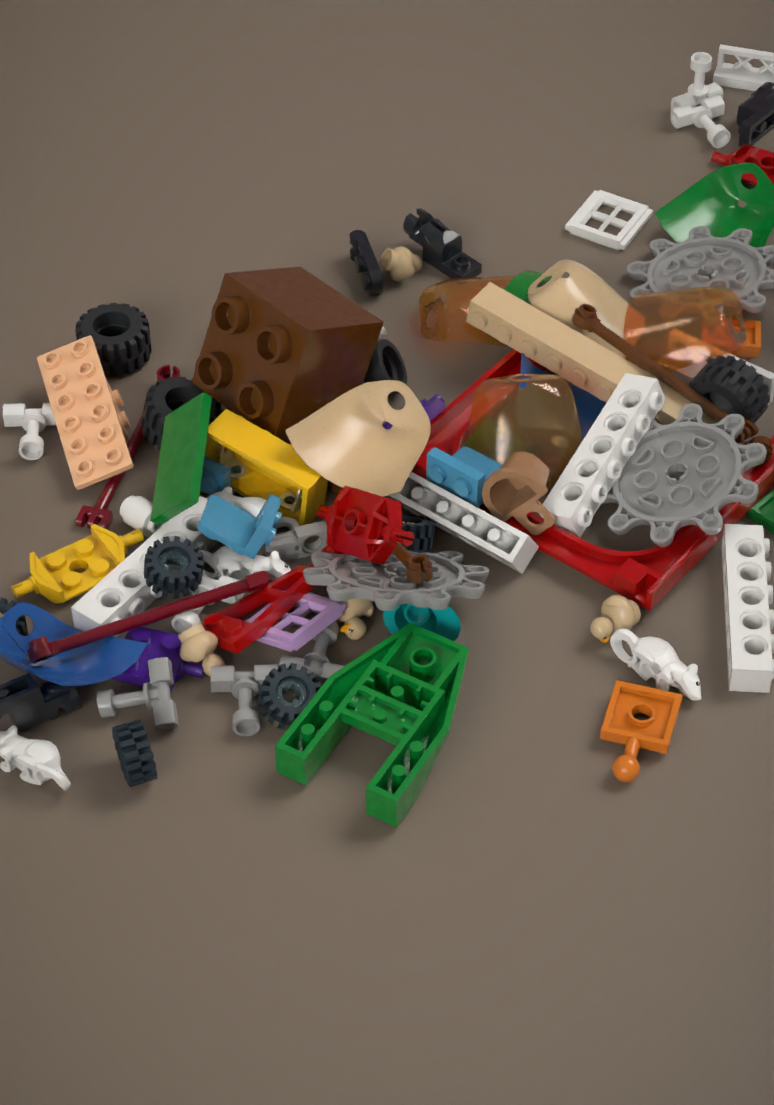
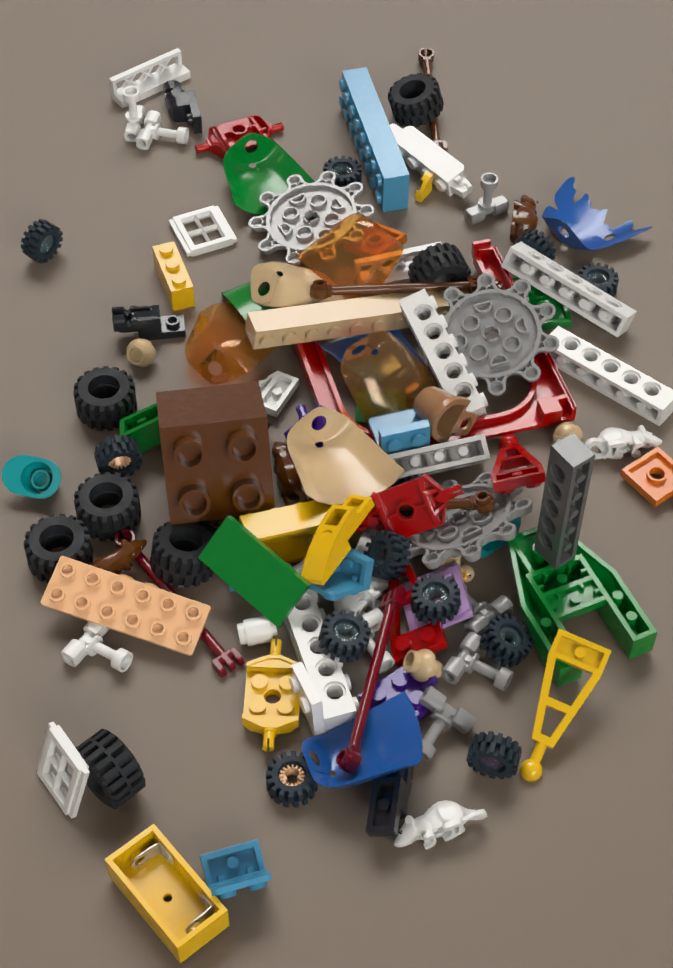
camera: 55 degrees left, 5 degrees up
(82, 579) = (308, 698): none -> white wing
(131, 381) = (121, 557): none -> reddish brown animal
(177, 278) = (31, 476): none -> teal piece
(181, 337) = (107, 490): none -> black tyre
(251, 486) = (332, 536): none -> yellow slope
(260, 601) = (435, 587): none -> black bush
(298, 752) = (581, 655): none -> yellow plate
(300, 546) = (389, 554): none -> black bush
(322, 258) = (109, 384): none -> black tyre
(366, 262) = (141, 373): black plate -> none
(425, 596) = (564, 500): none -> dark grey brick
(443, 373) = (277, 391): none -> white wing
(458, 116) = (41, 241): none -> black bush
(481, 576) = (512, 456): none -> red plate
(518, 230) = (173, 276): none -> yellow brick

